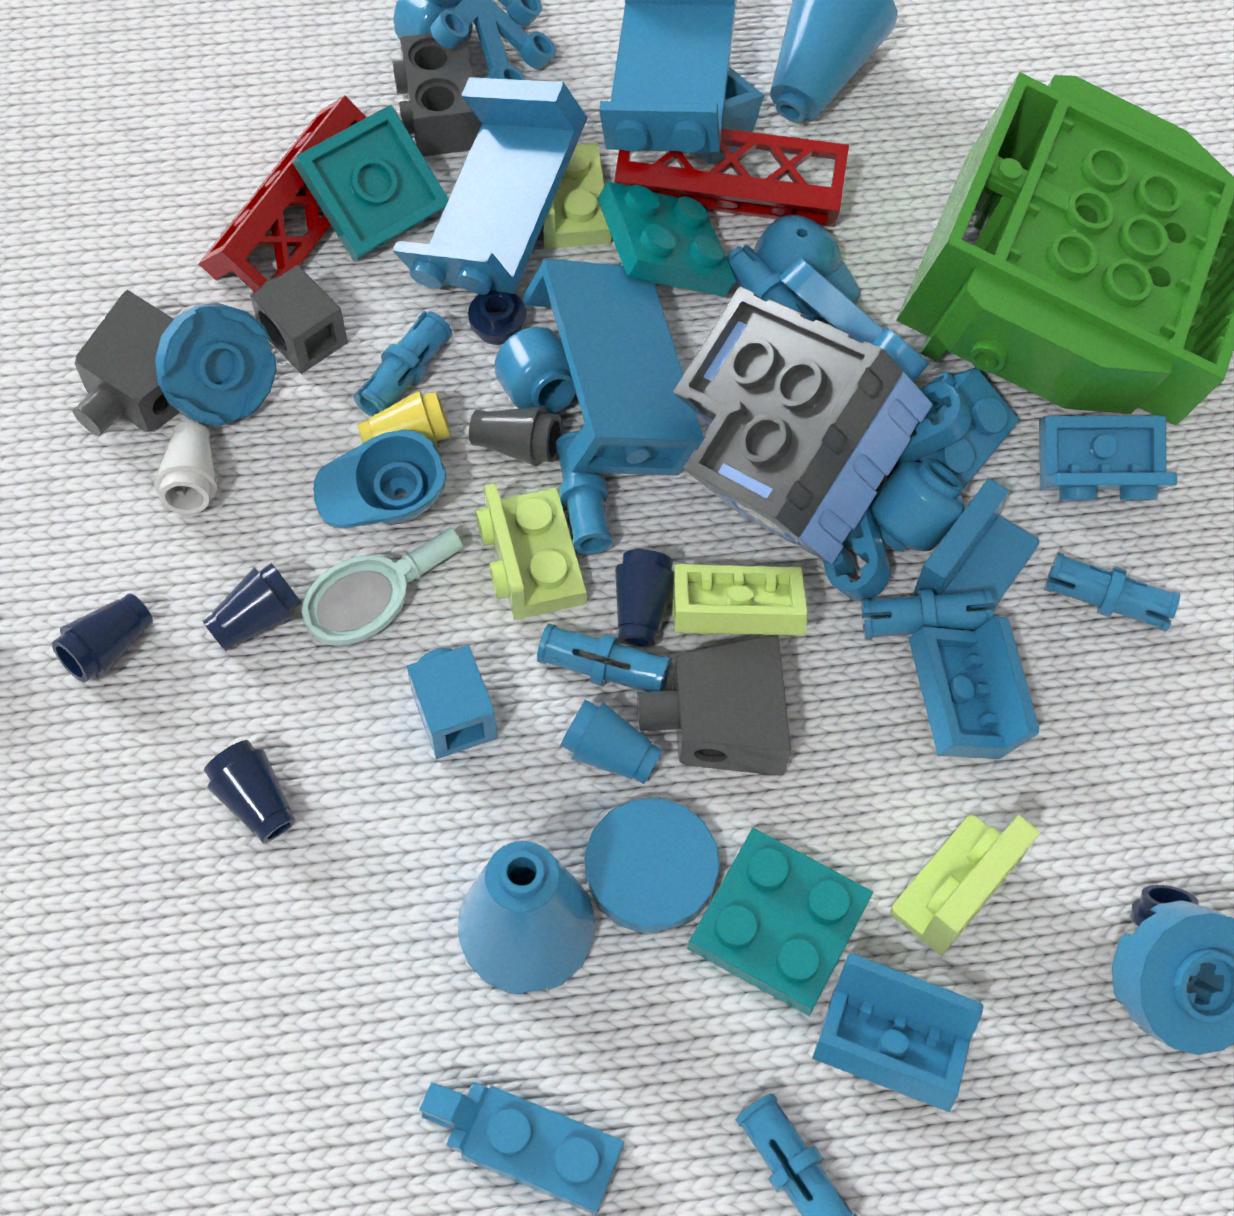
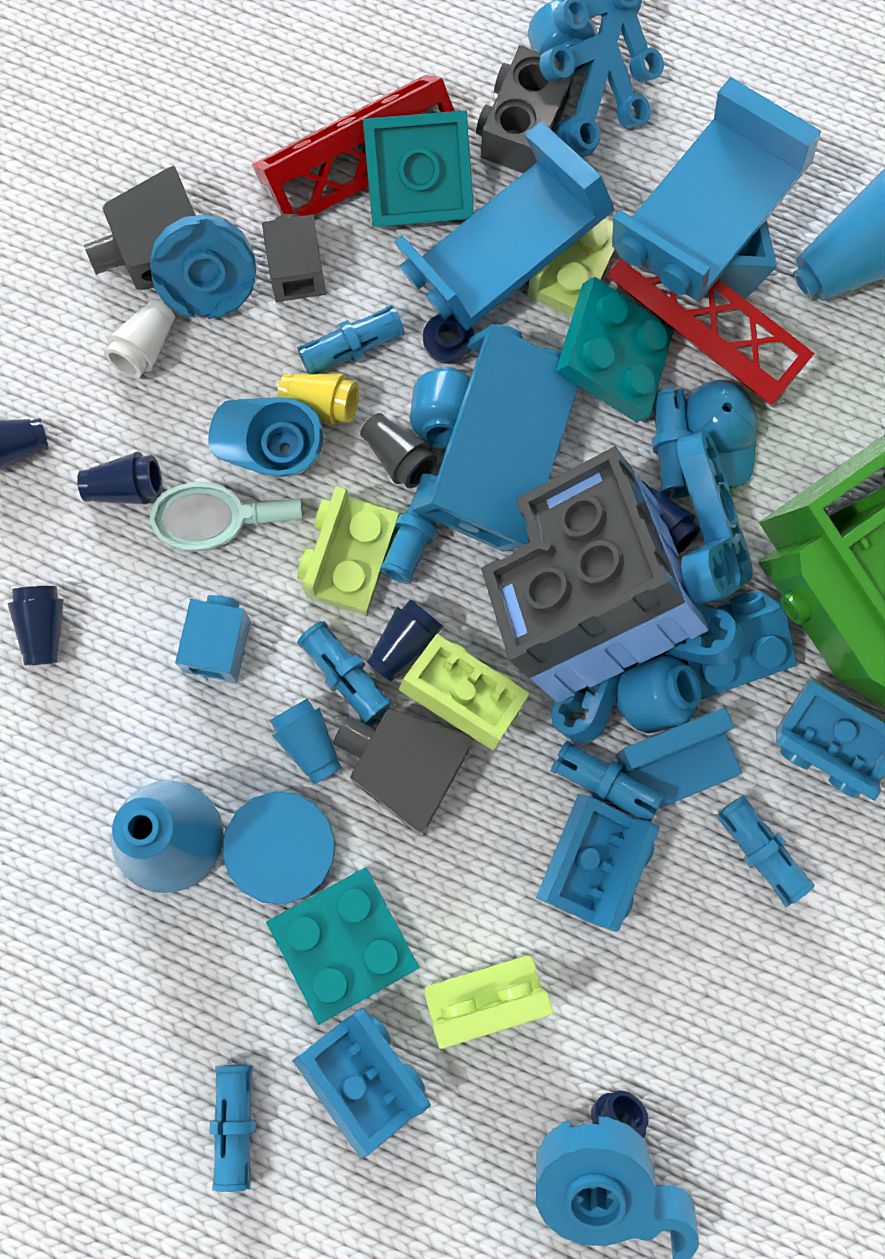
camera: 30 degrees right, 15 degrees up
(526, 1143) = (69, 990): dark azure hinge -> none

